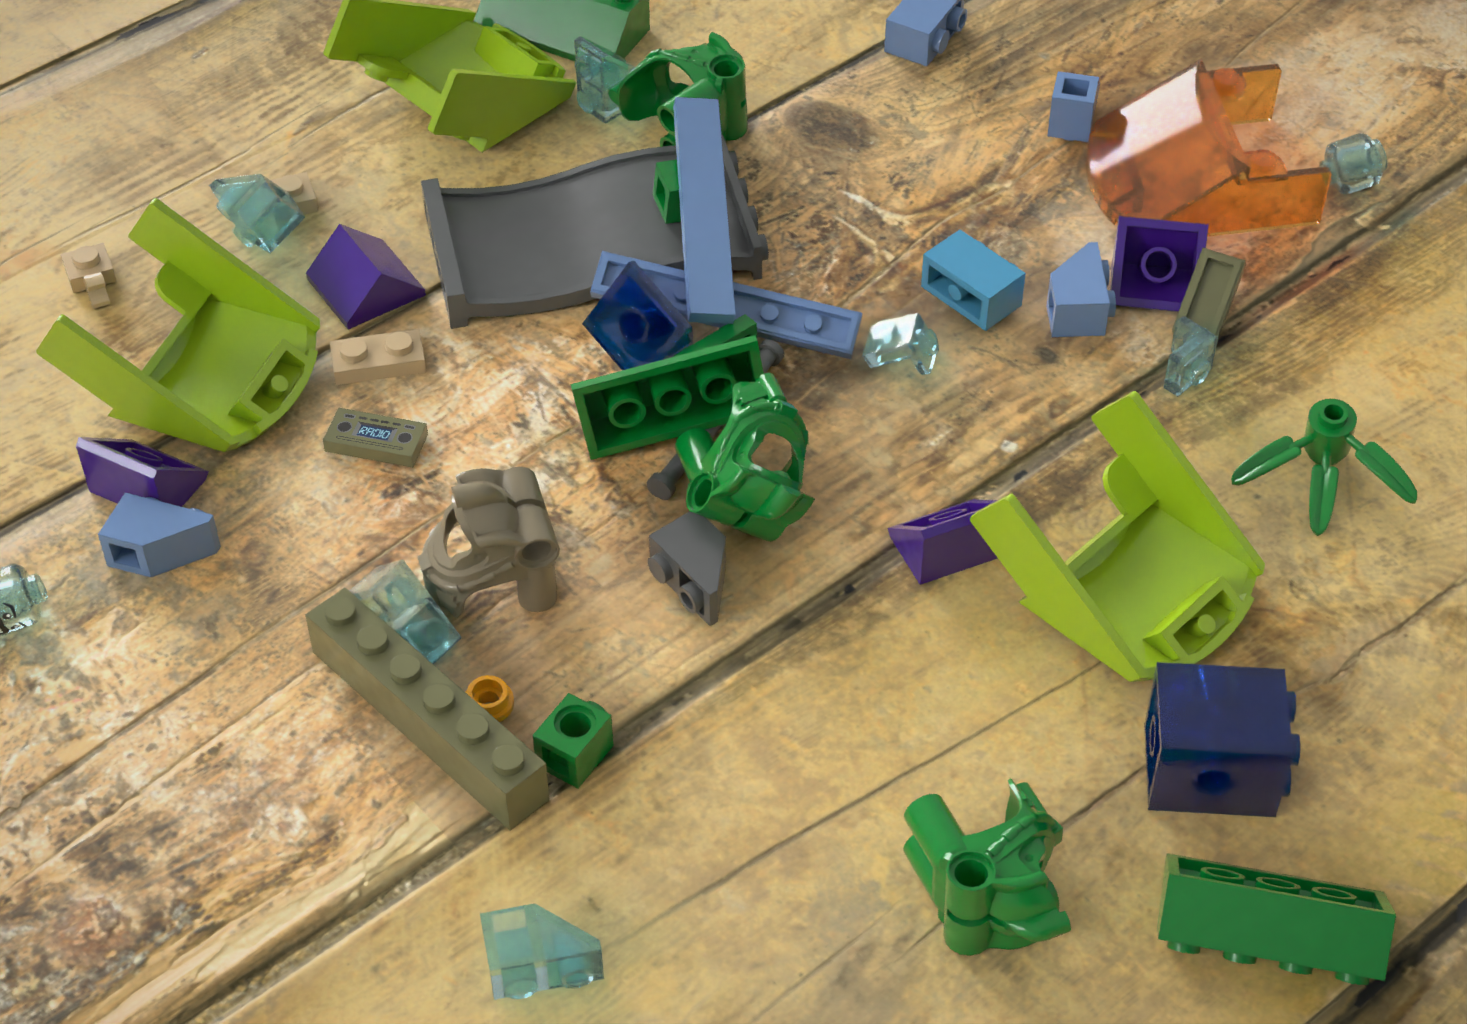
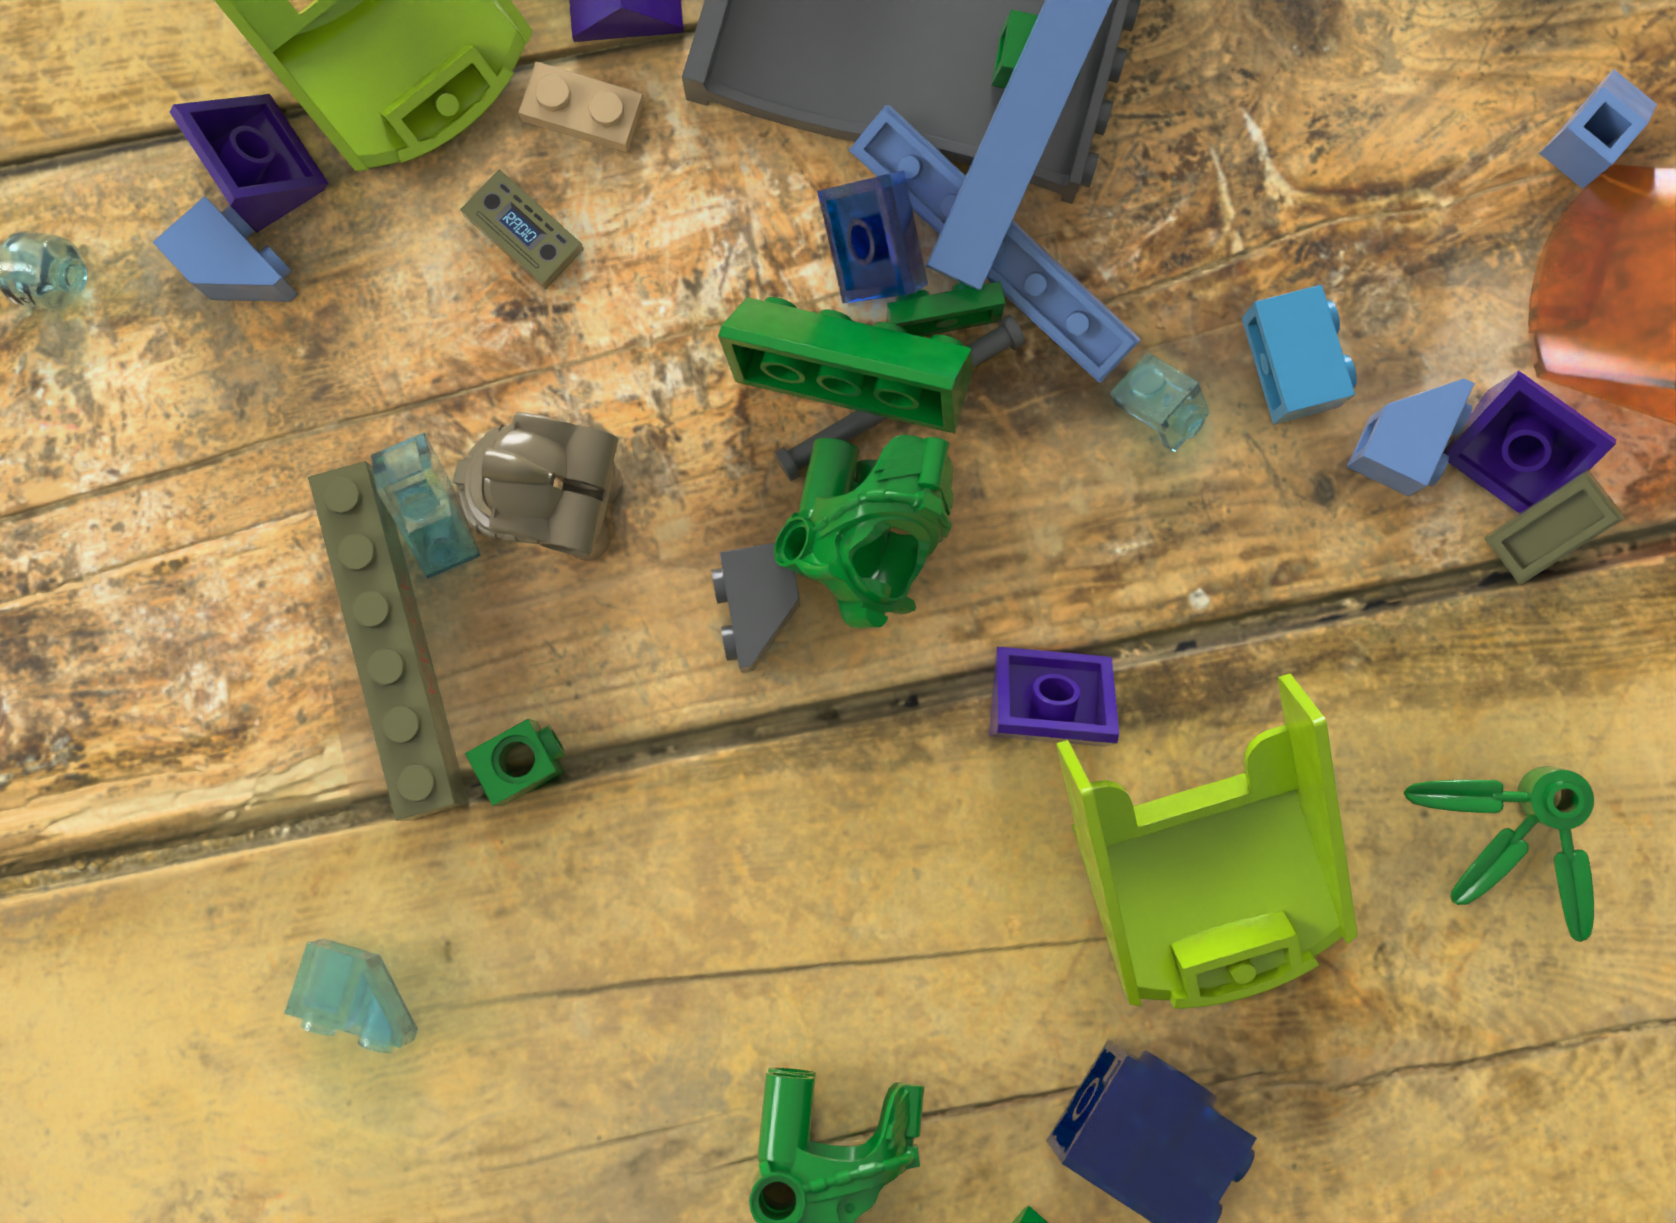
camera: 25 degrees right, 35 degrees up
(492, 689) = (445, 655): light orange plate -> none
(1191, 356) = (1495, 587): clear light blue bracket -> none

